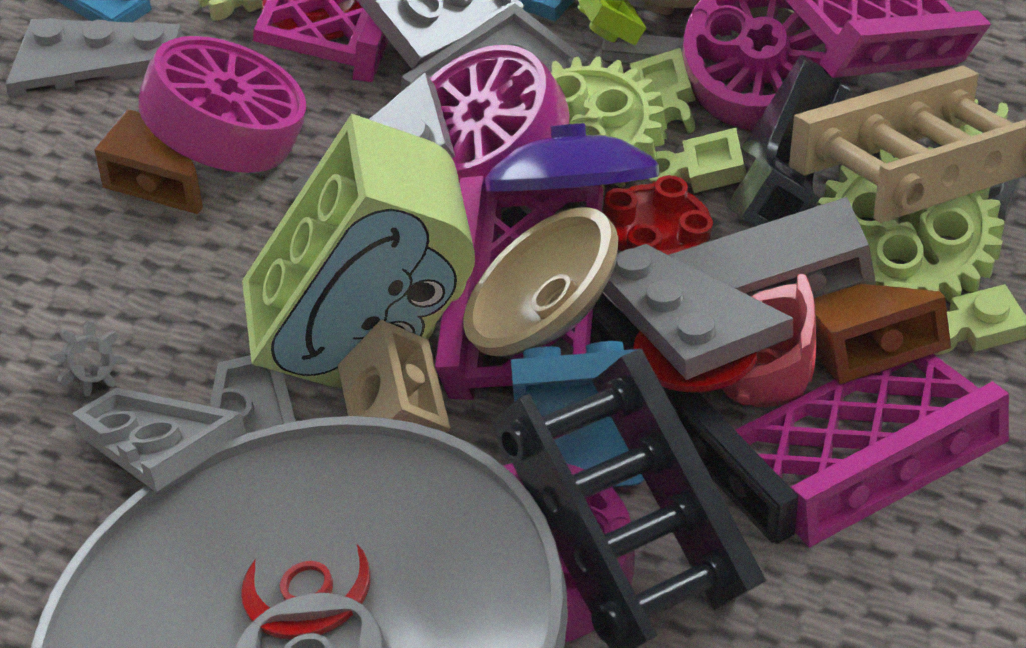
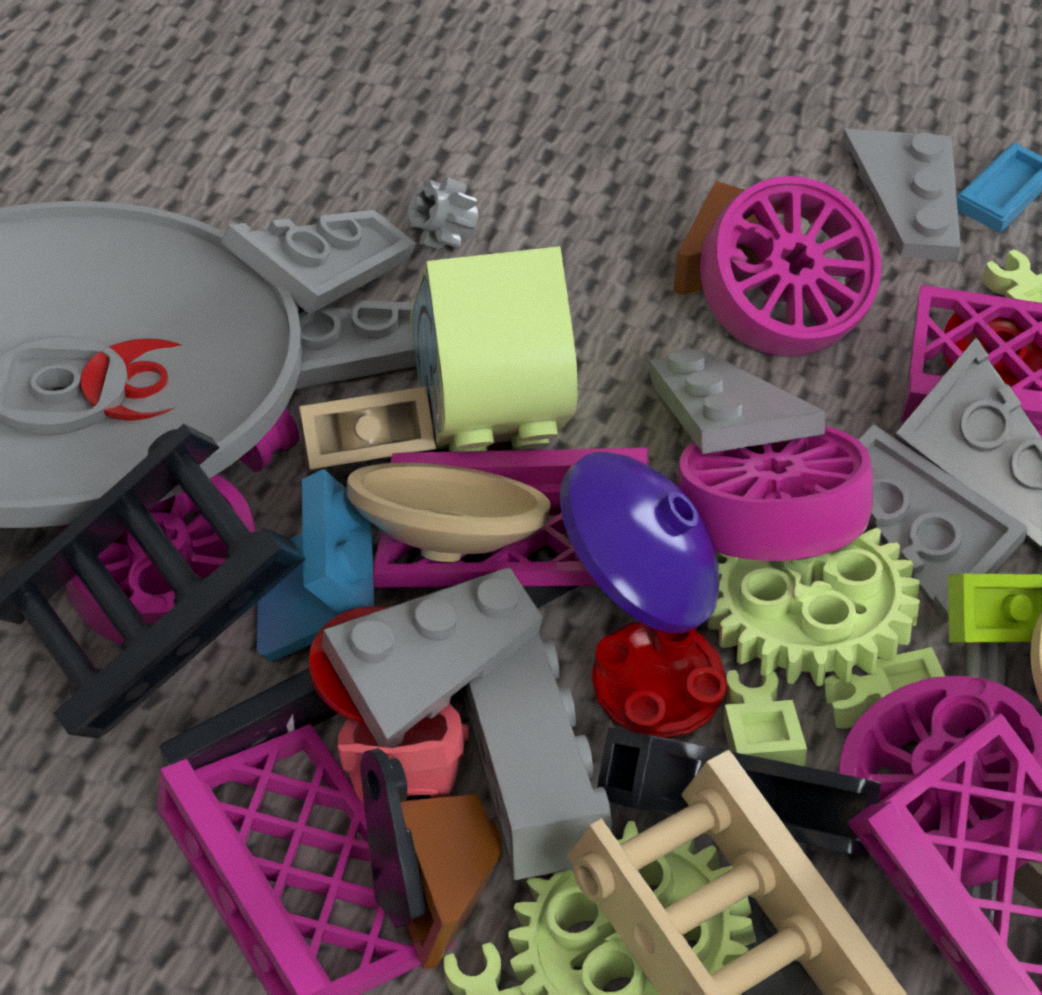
camera: 85 degrees right, 5 degrees up
(874, 330) = (390, 843): none -> piece

